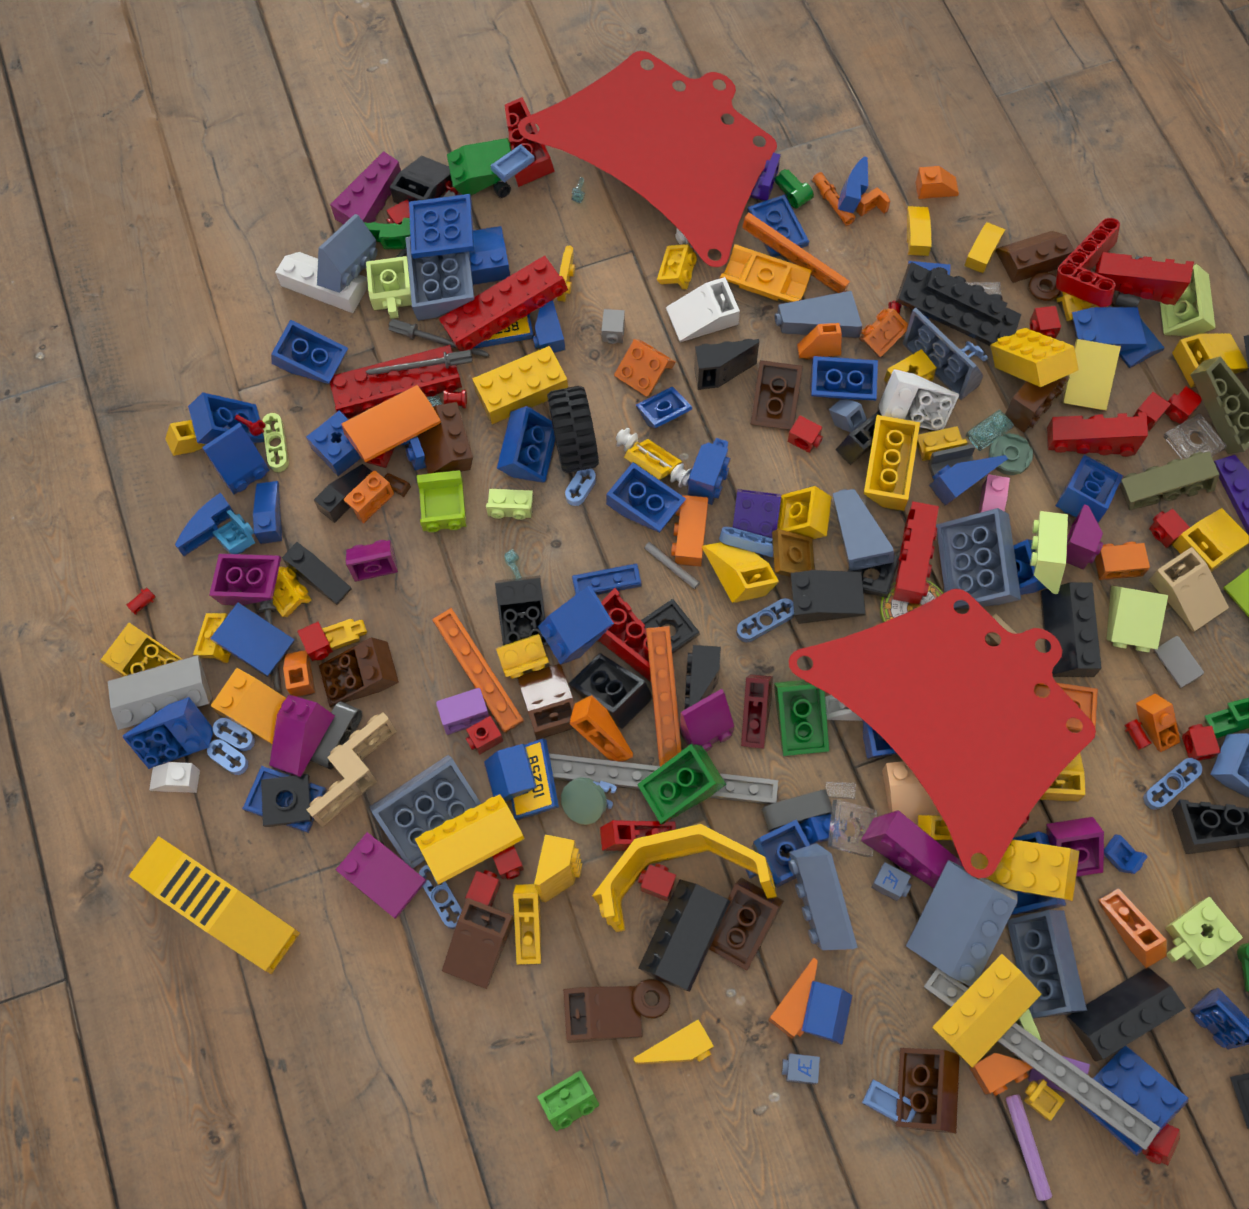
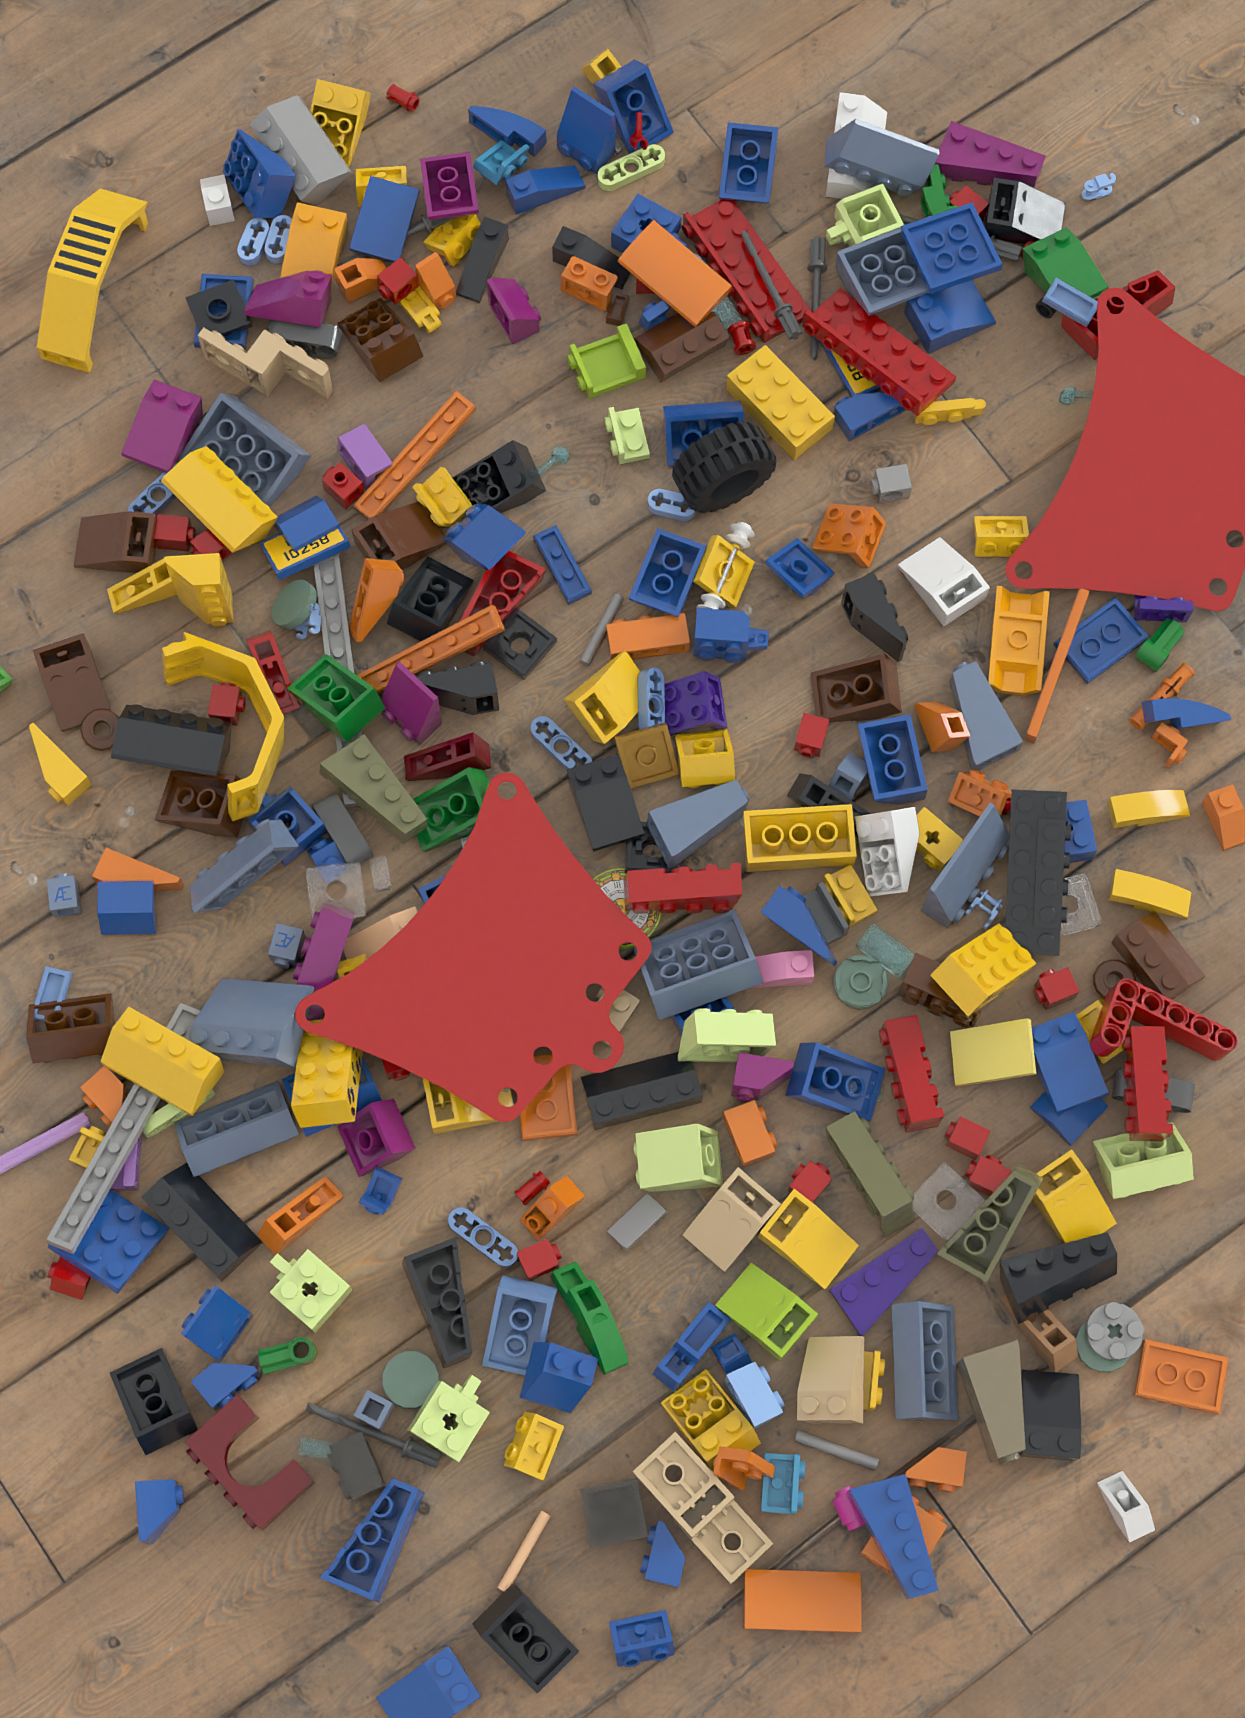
camera: 70 degrees right, 5 degrees up
(326, 610) = (436, 281): none -> orange slope
(417, 129) = (1095, 188): none -> light blue piece
(772, 770) = (371, 783): none -> olive wedge

